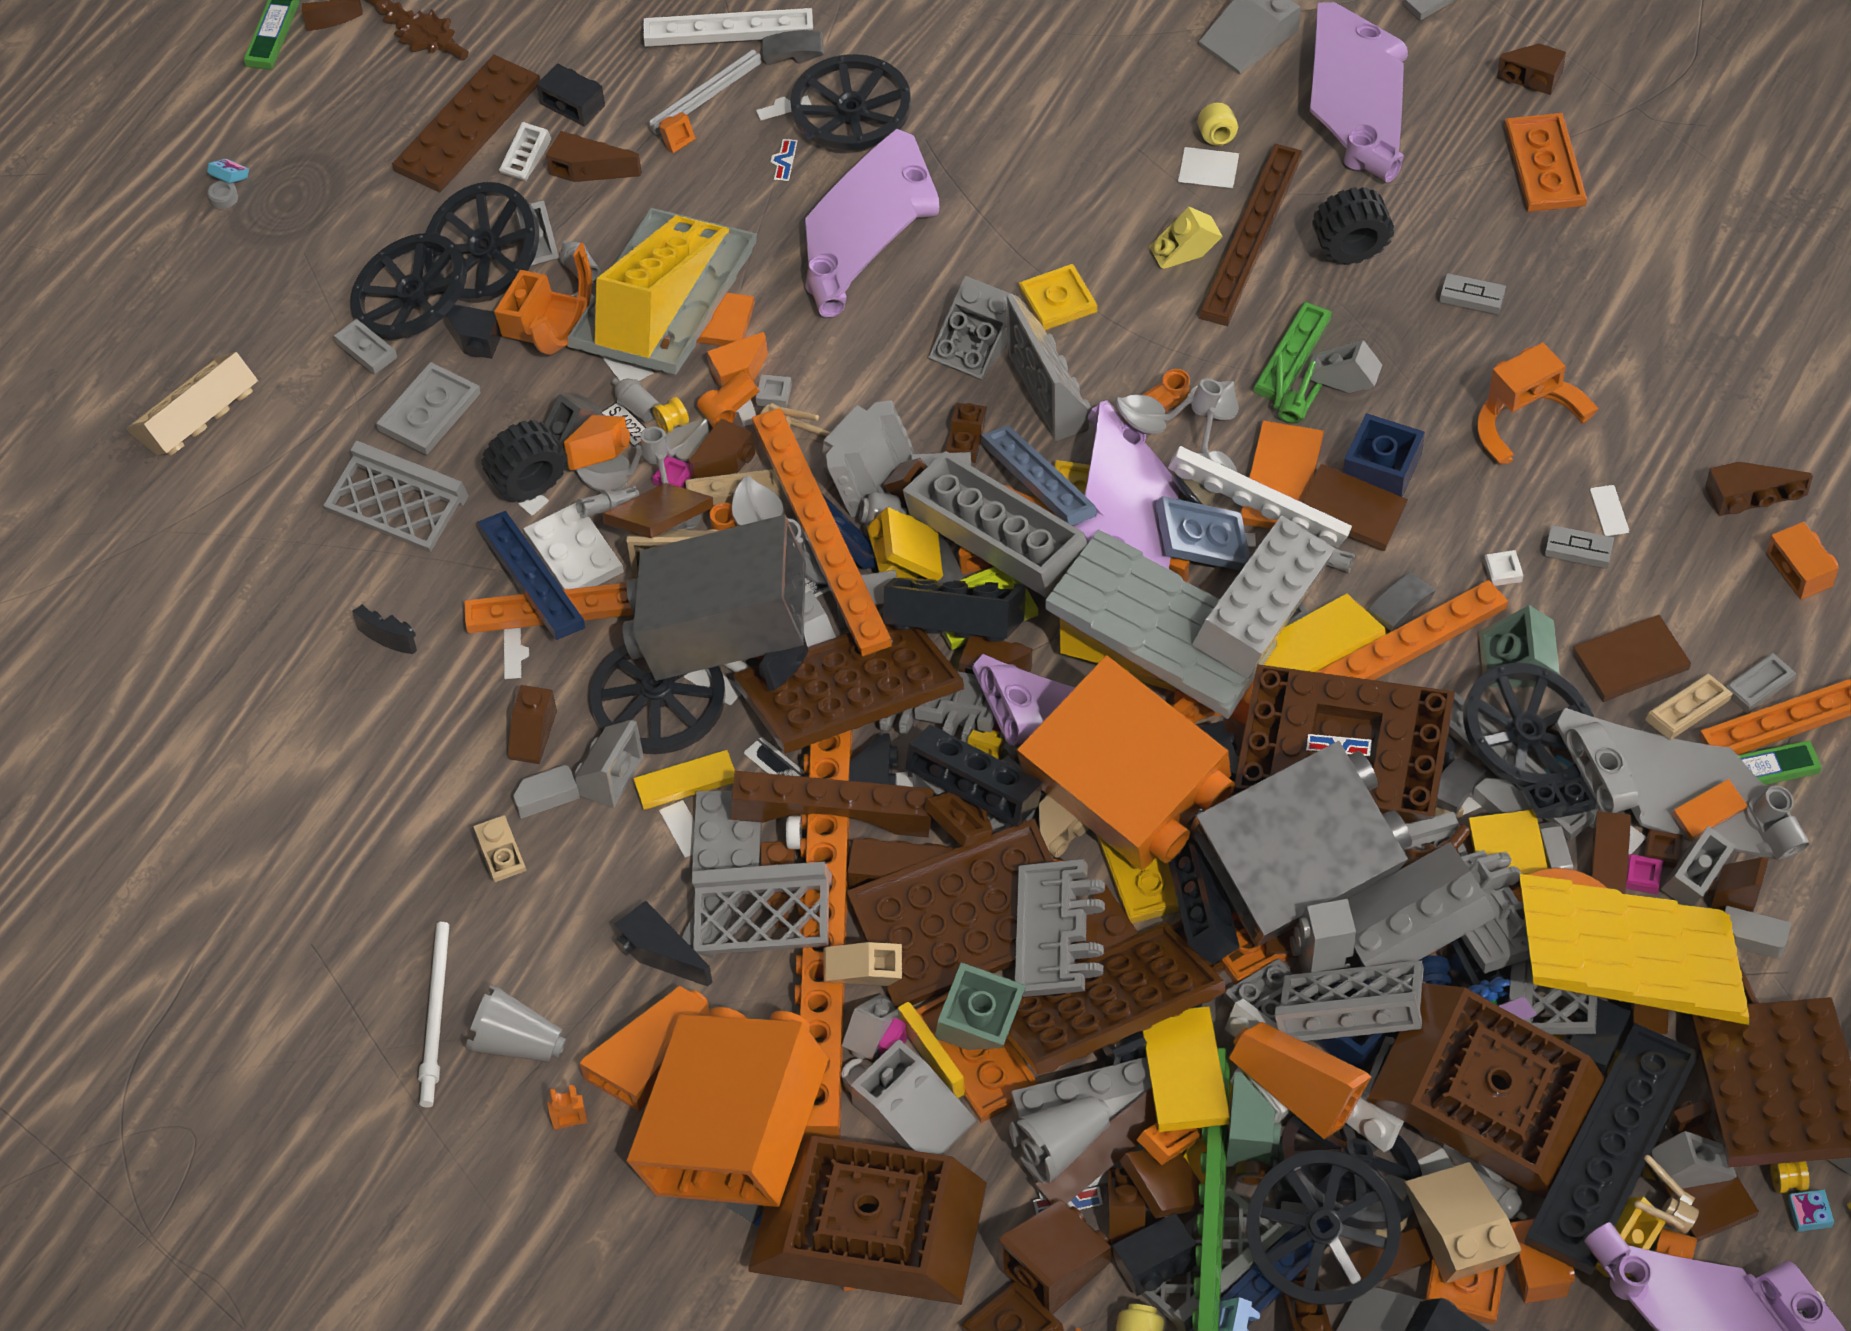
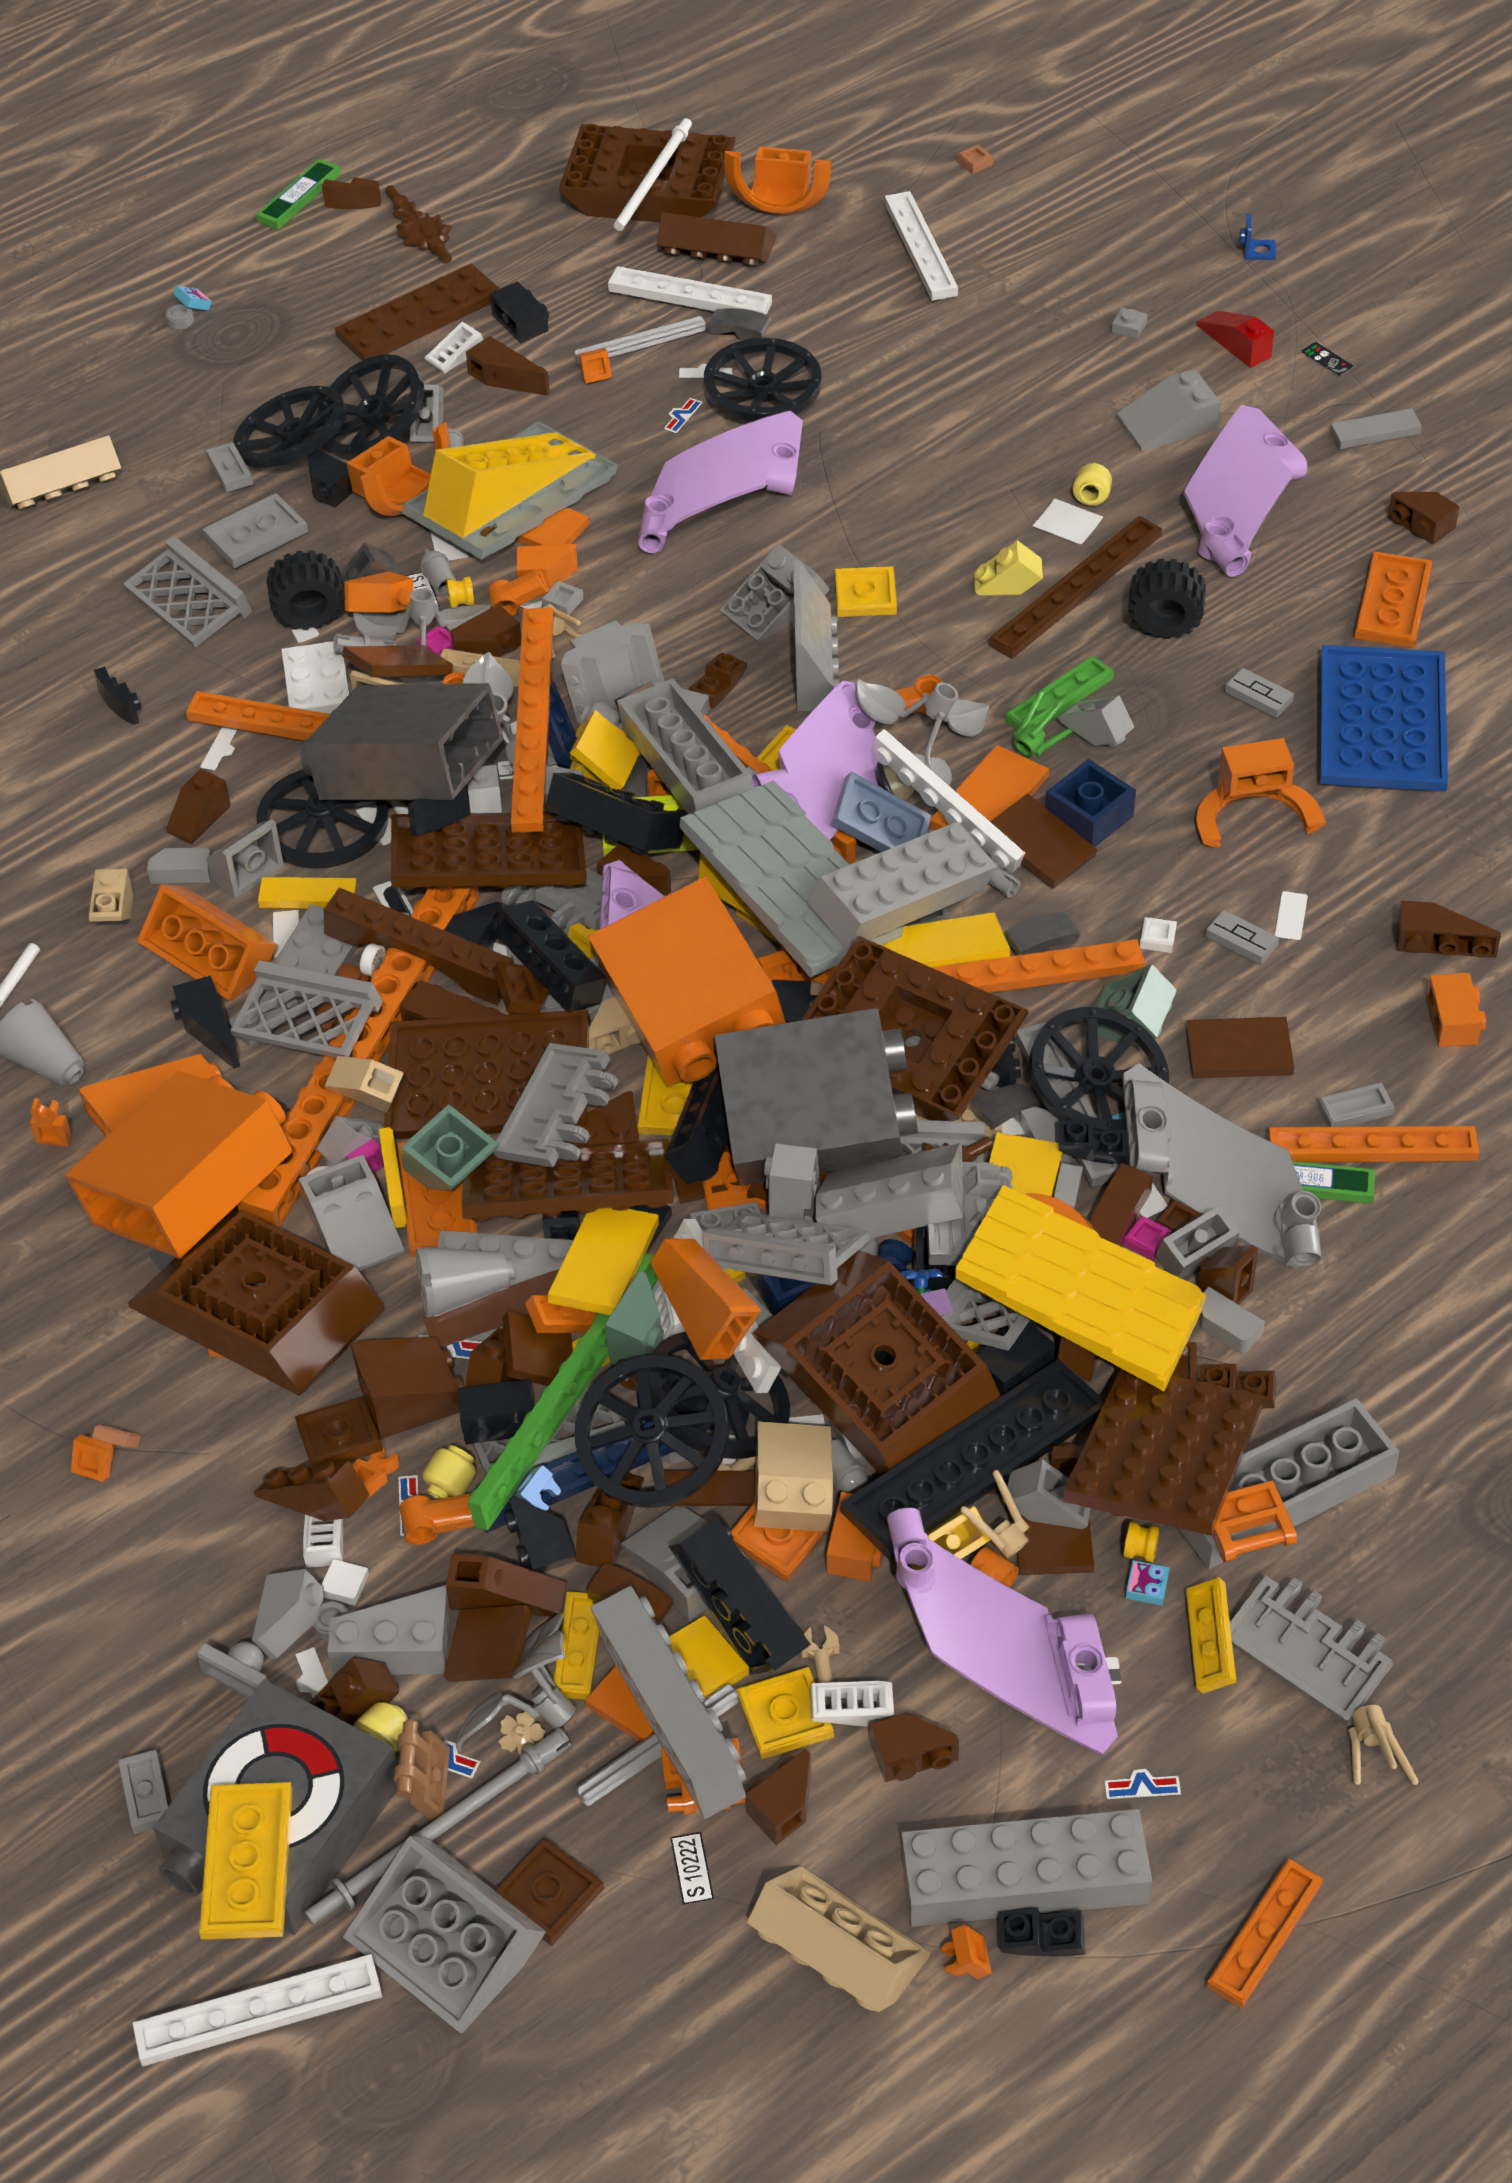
camera: 20 degrees right, 5 degrees down
(531, 575) = (262, 685): dark blue plate -> none
(614, 864) = (204, 940): none -> orange slope
(1039, 475) = (753, 727): sand blue plate -> none
(1351, 745) = (908, 1030): sticker -> none
(1597, 286) = (1383, 718): none -> blue plate
(1689, 706) = (1269, 1103): tan tile -> none
(1709, 809) = (1240, 1196): orange tile -> none
(1799, 987) = (1253, 1381): none -> reddish brown slope

